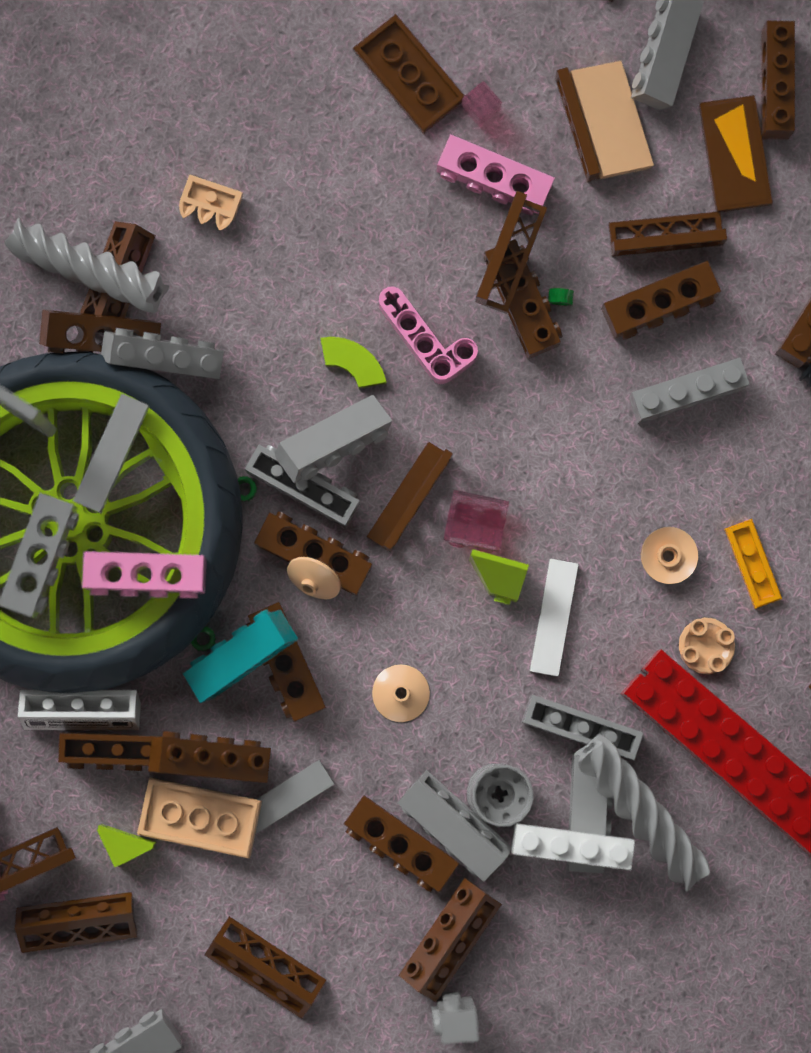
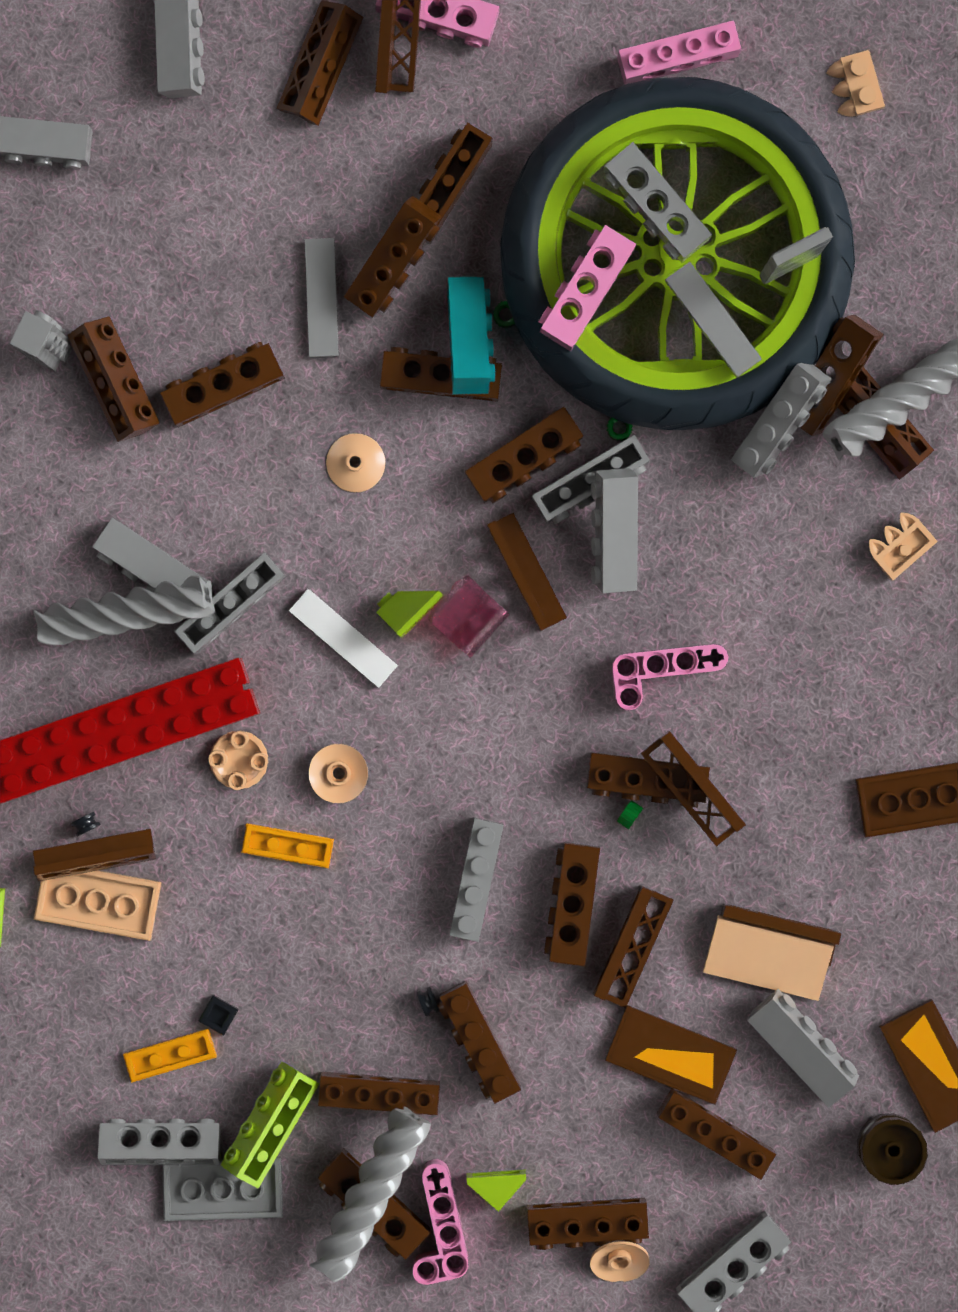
camera: 125 degrees right, 5 degrees up
(79, 710) = (503, 168): white brick -> none
(123, 845) = (363, 139): lime slope -> none
(199, 817) = (348, 221): light nougat tile -> none
(281, 988) = (184, 195): reddish brown fence -> none
(314, 578) = (501, 441): light nougat dish -> none
(354, 359) = (680, 594): lime tile -> none
(454, 826) = (210, 440): light grey brick -> none
(460, 151) = (818, 799): bright pink brick -> none
(481, 103) = (851, 847): clear pink piece -> none
(514, 802) = (200, 506): light grey wheel -> none
(572, 846) = (130, 531): white brick -> none

